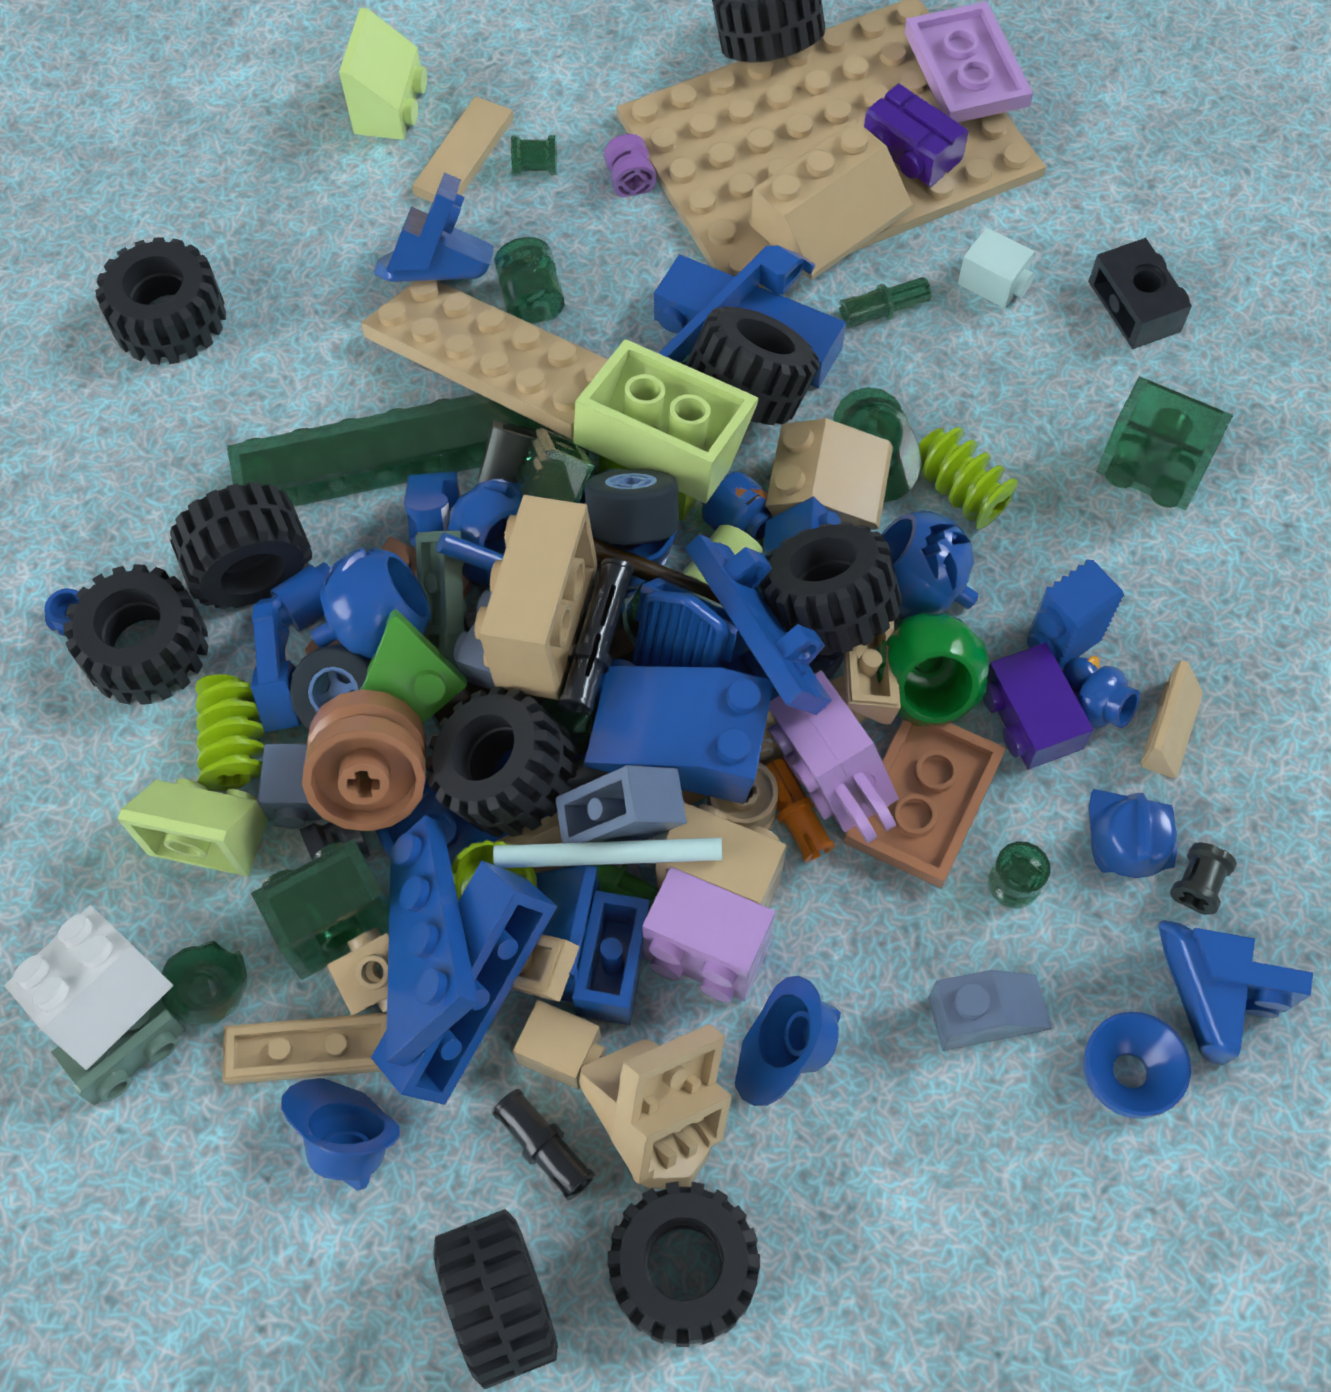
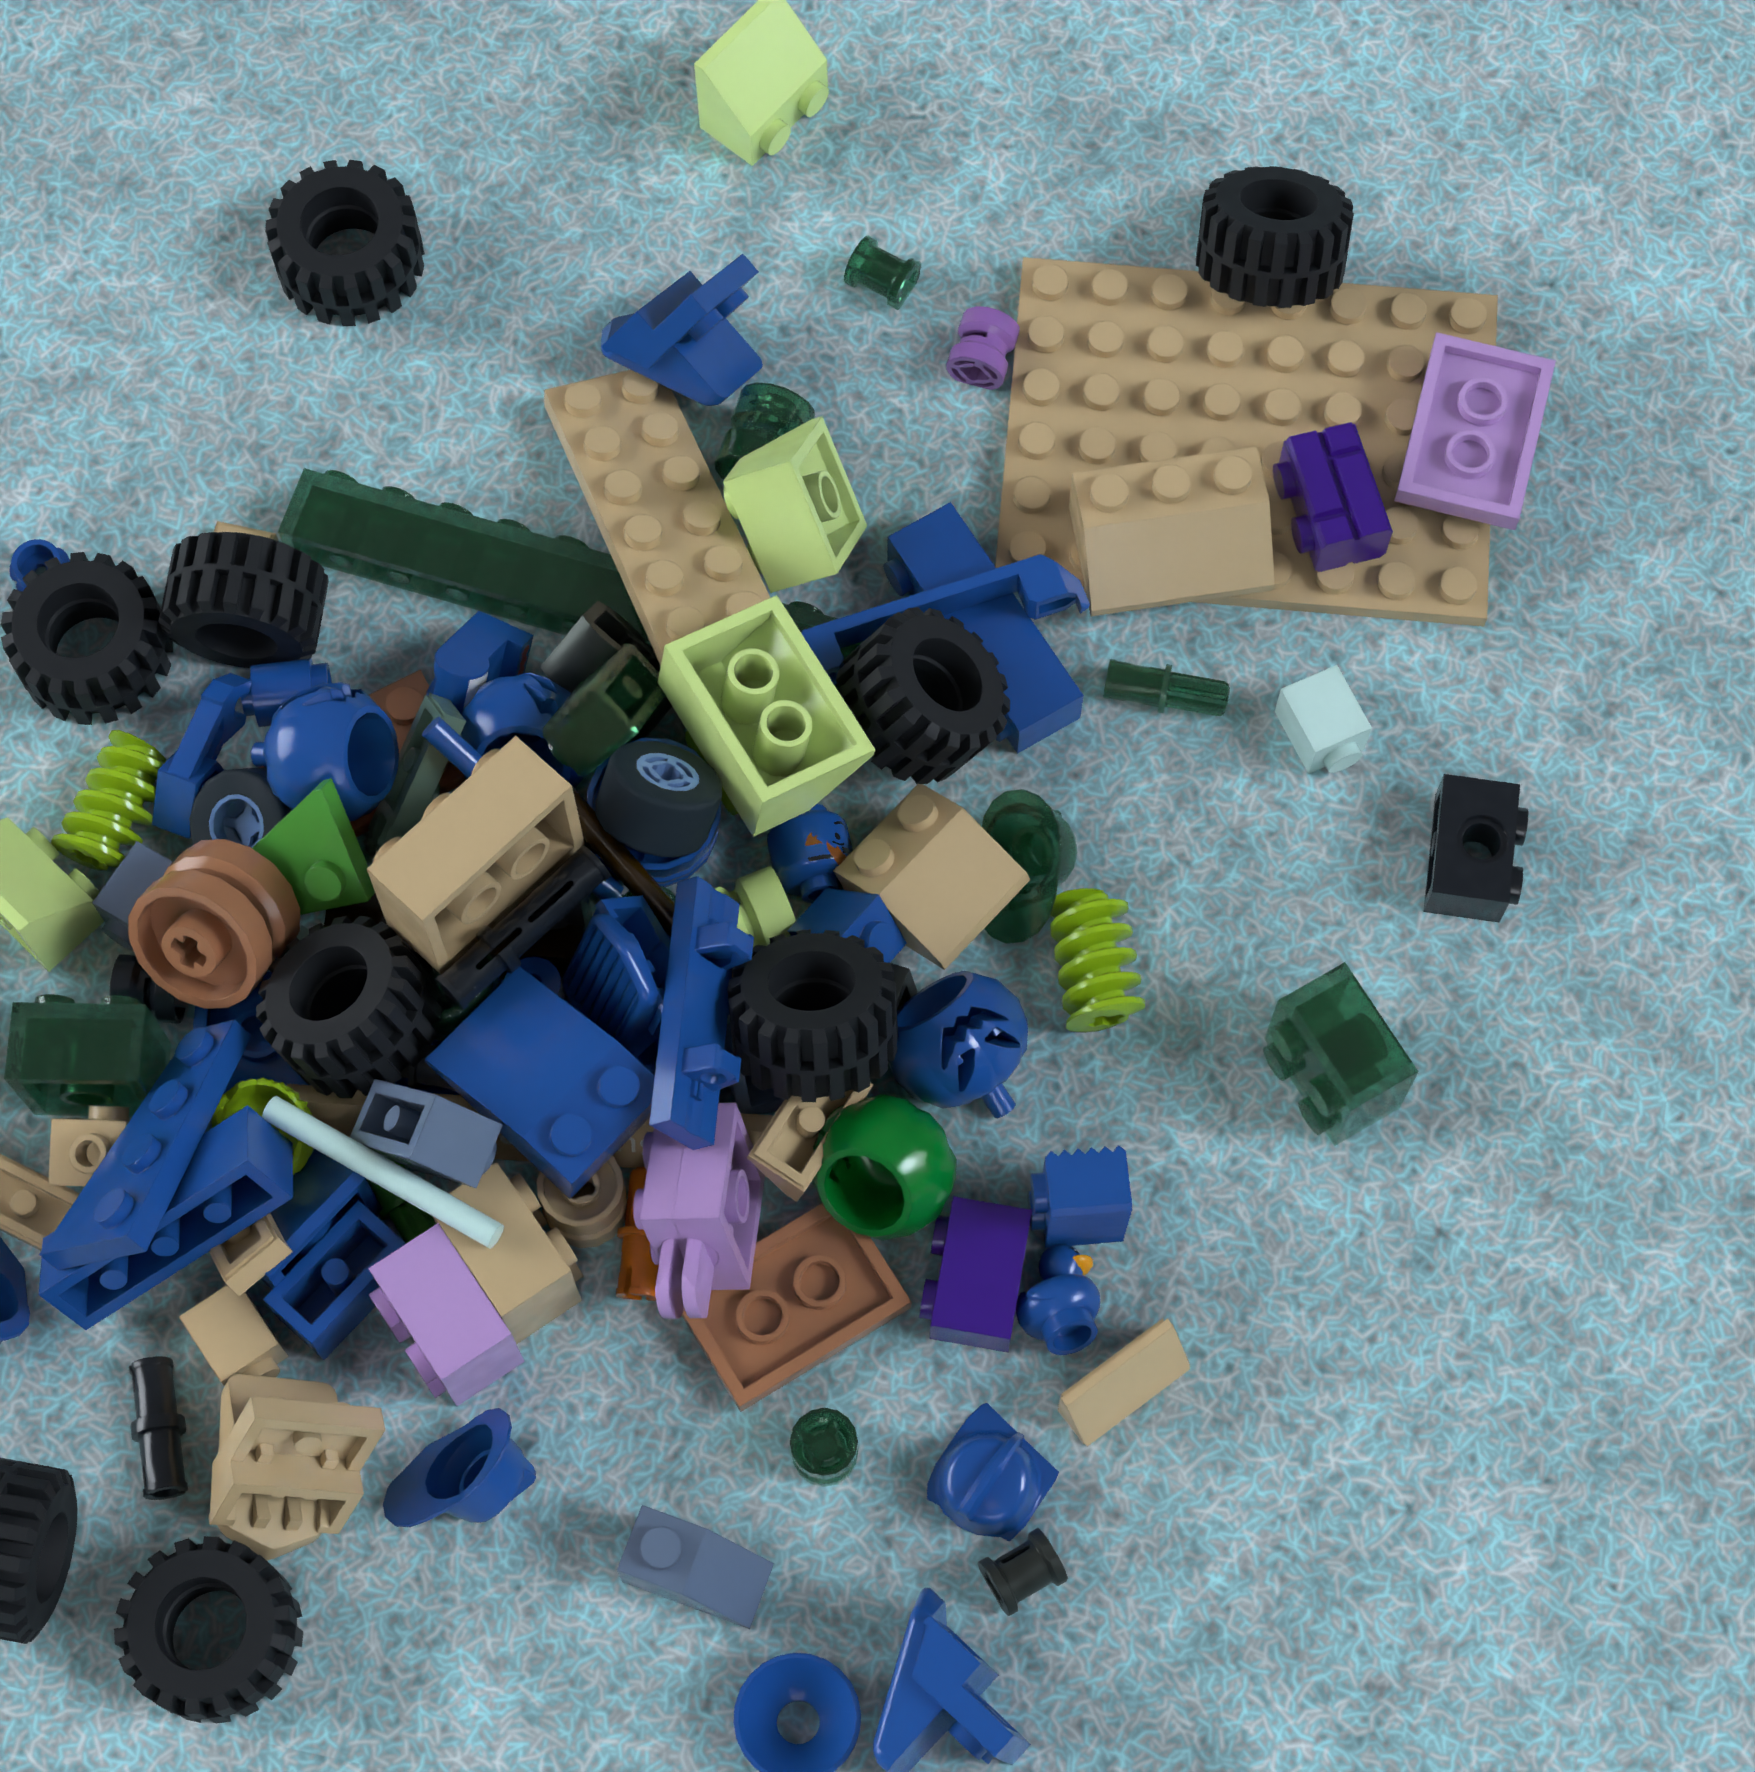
camera: 30 degrees right, 5 degrees up
(465, 147) = (810, 219): tan tile -> none
(581, 303) = (795, 507): none -> yellowish green slope

